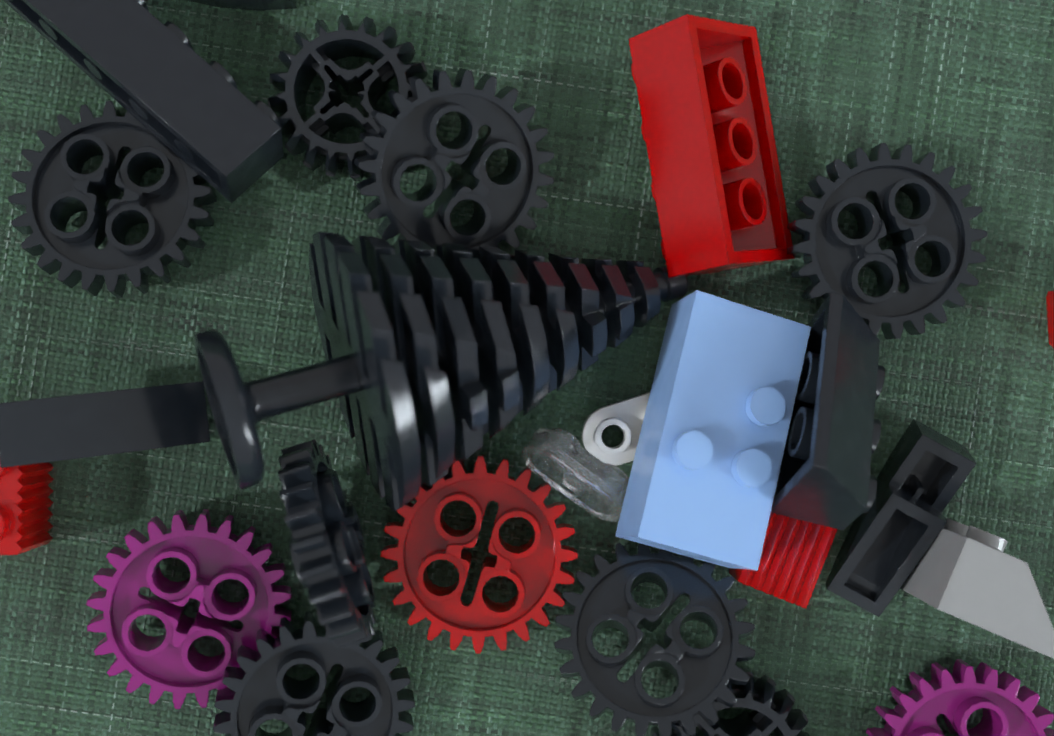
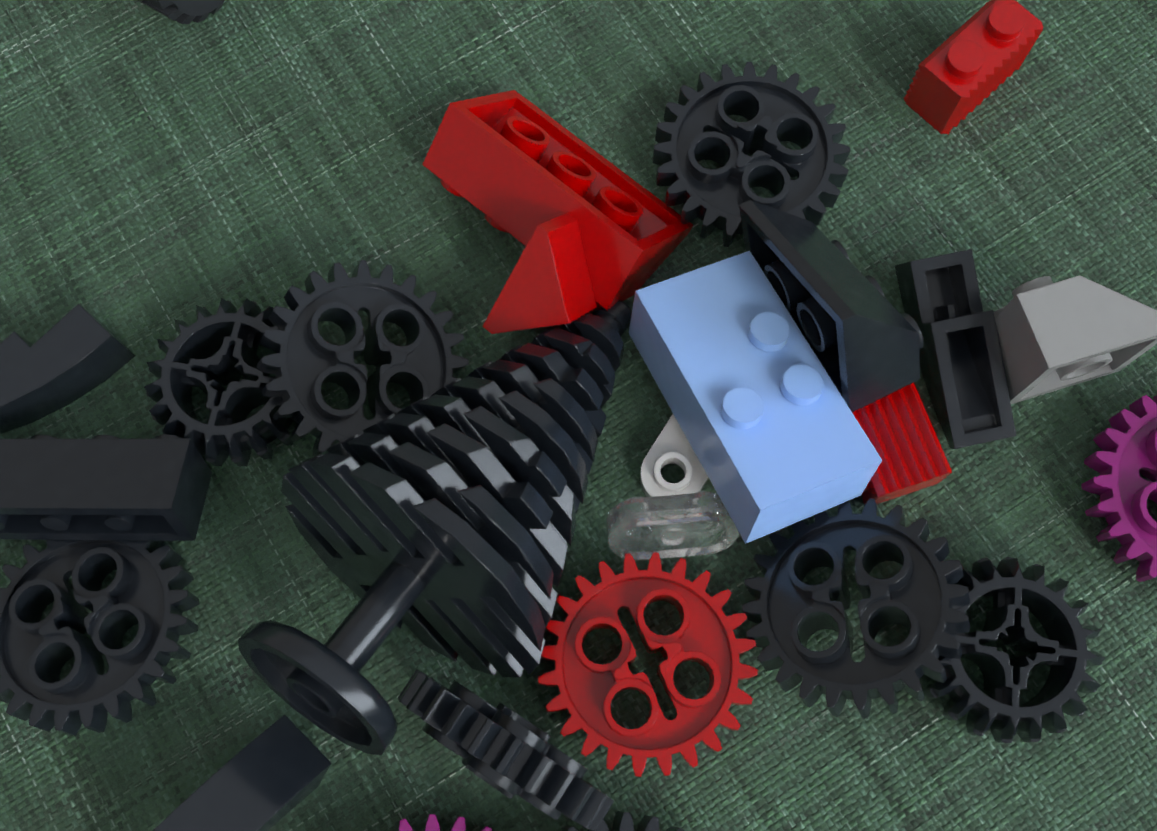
camera: 40 degrees left, 15 degrees down
(639, 227) = (547, 282): none -> red slope

